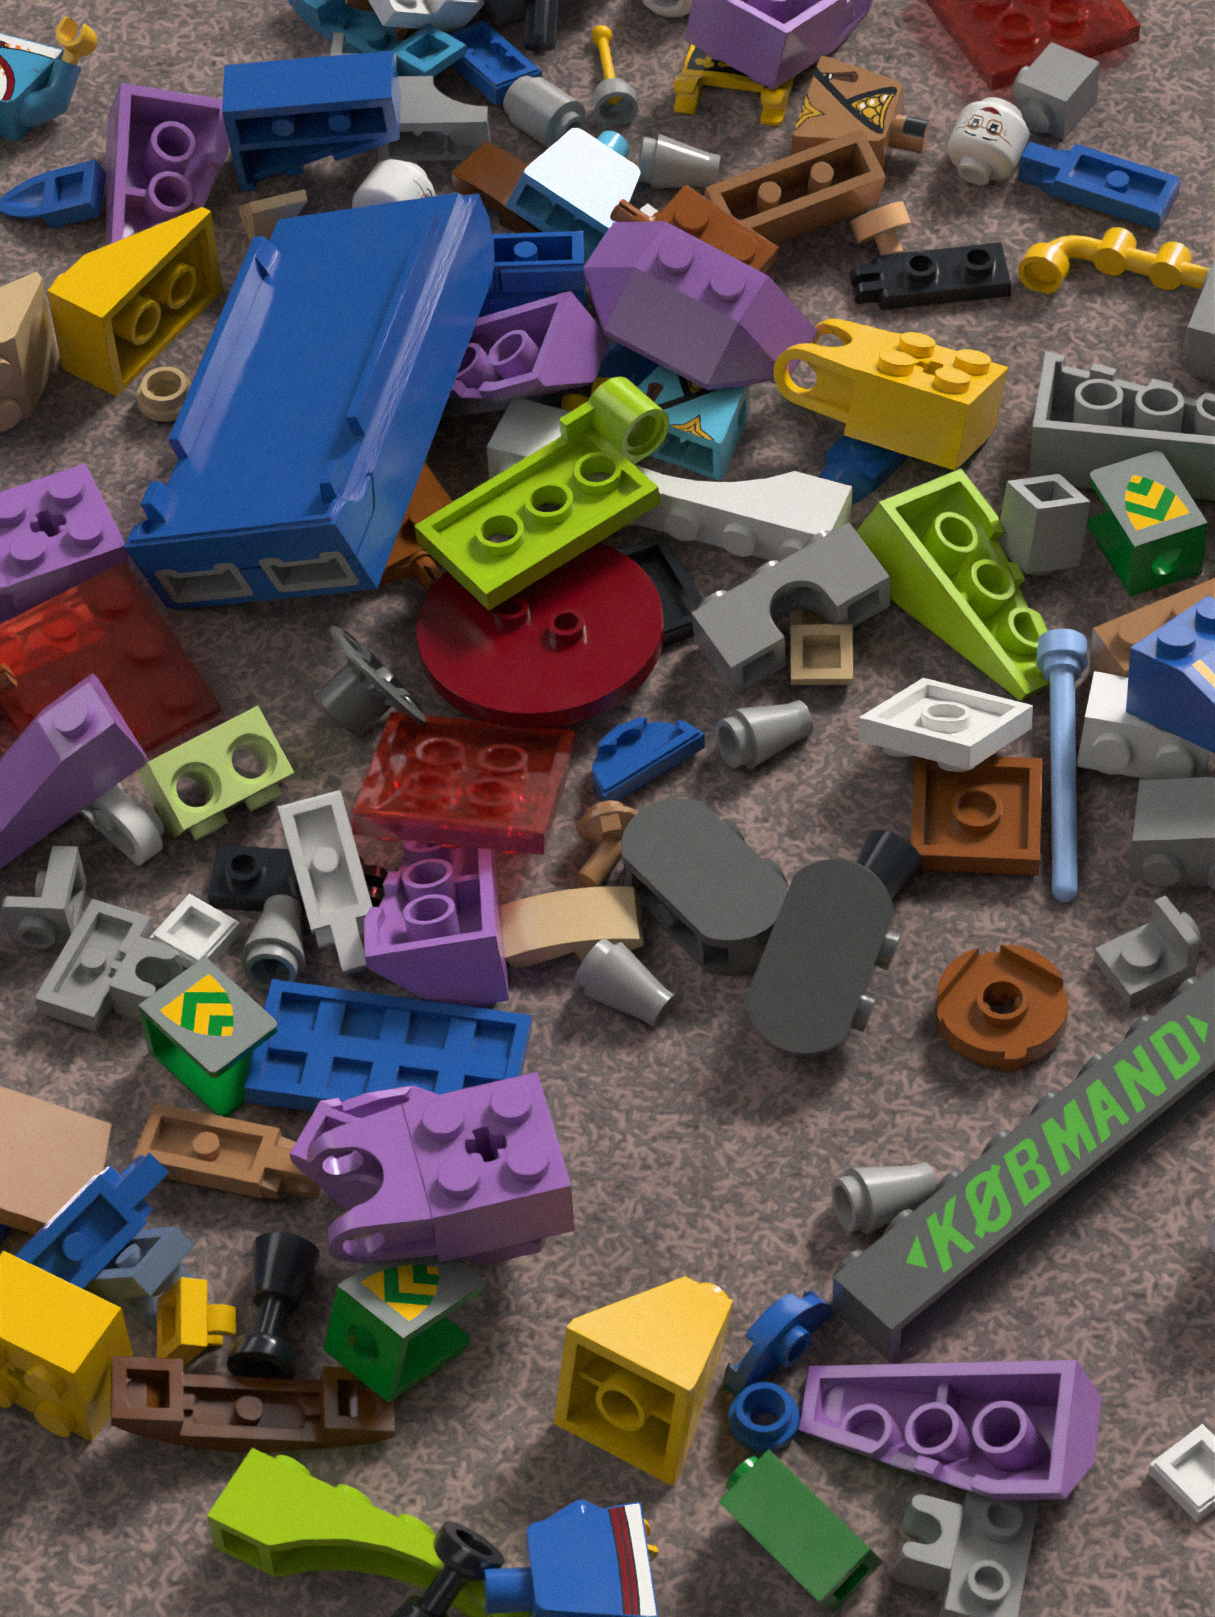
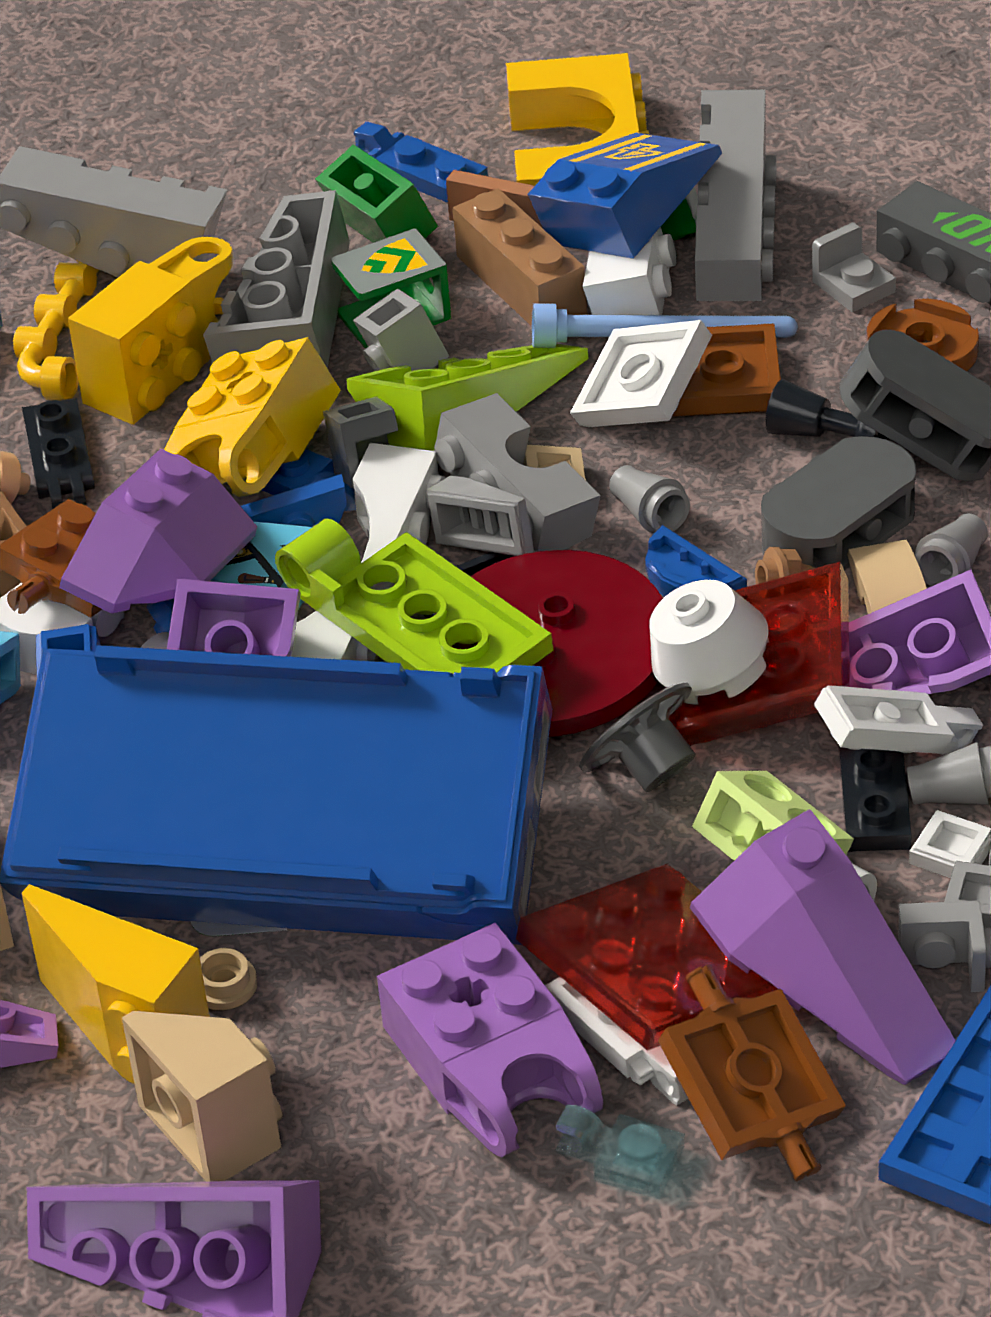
camera: 95 degrees left, 10 degrees down
(458, 720) = (707, 639): none -> white cone
(724, 571) = (460, 498): none -> light grey slope
(773, 442) = (302, 505): none -> blue plate
(869, 471) = (353, 429): none -> dark grey panel
(1068, 302) = (148, 329): none -> yellow brick

